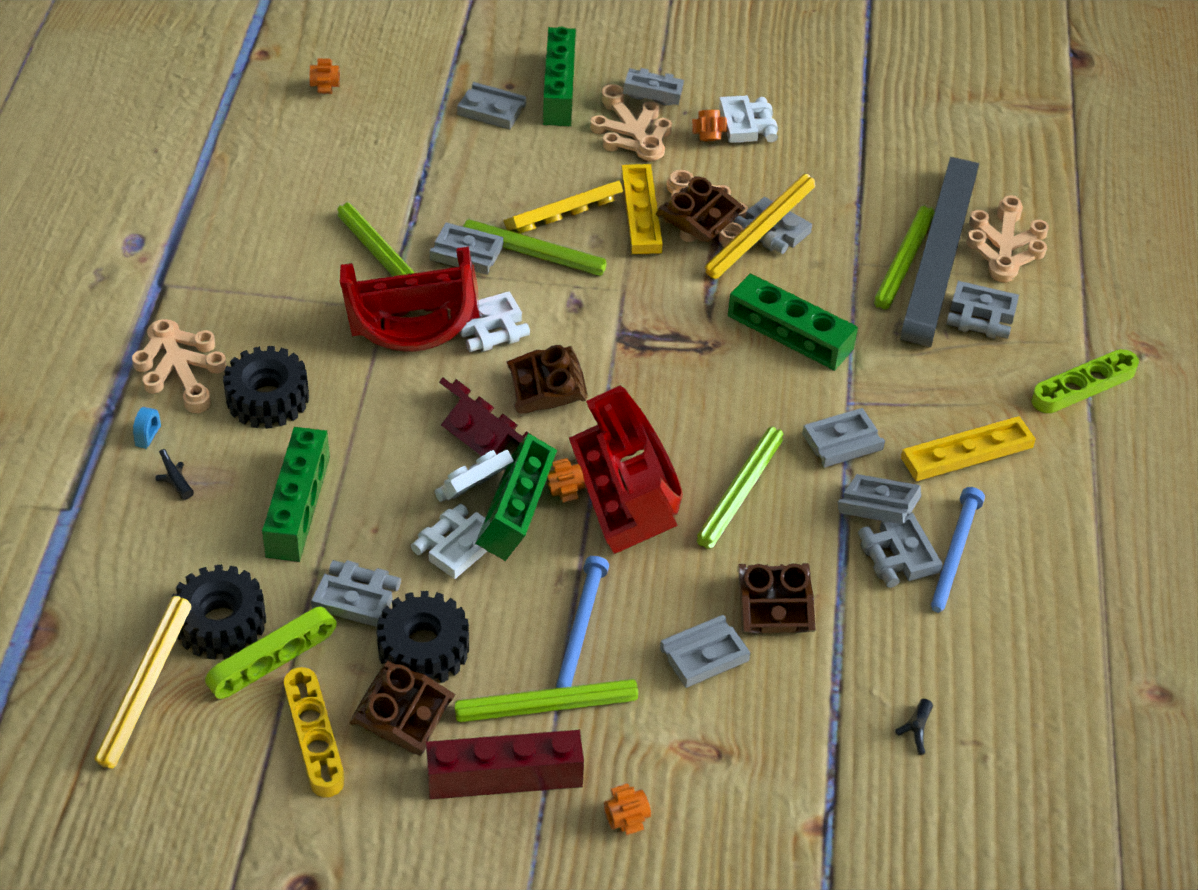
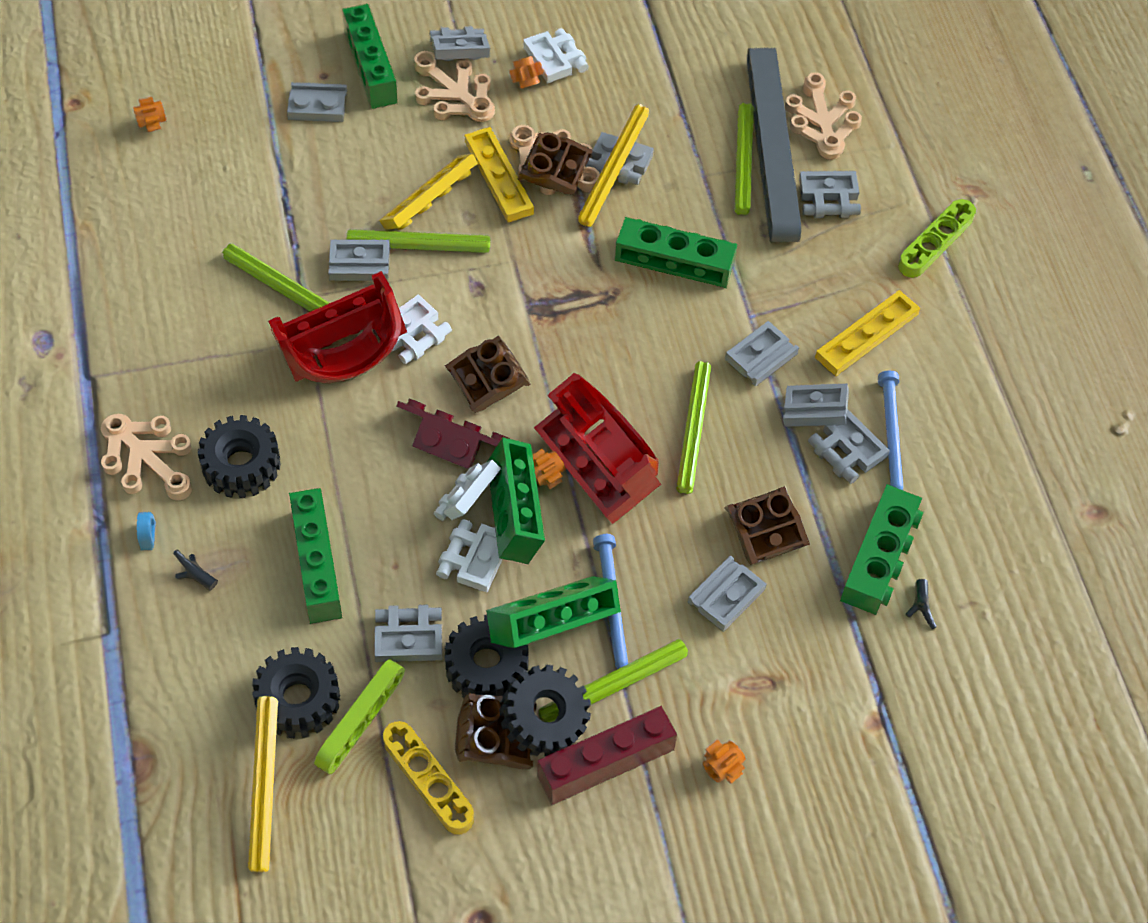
camera: 20 degrees left, 10 degrees up
(447, 722) = (527, 727): none -> black tyre
(506, 606) = (553, 611): none -> green brick
(892, 657) = (862, 589): none -> green brick

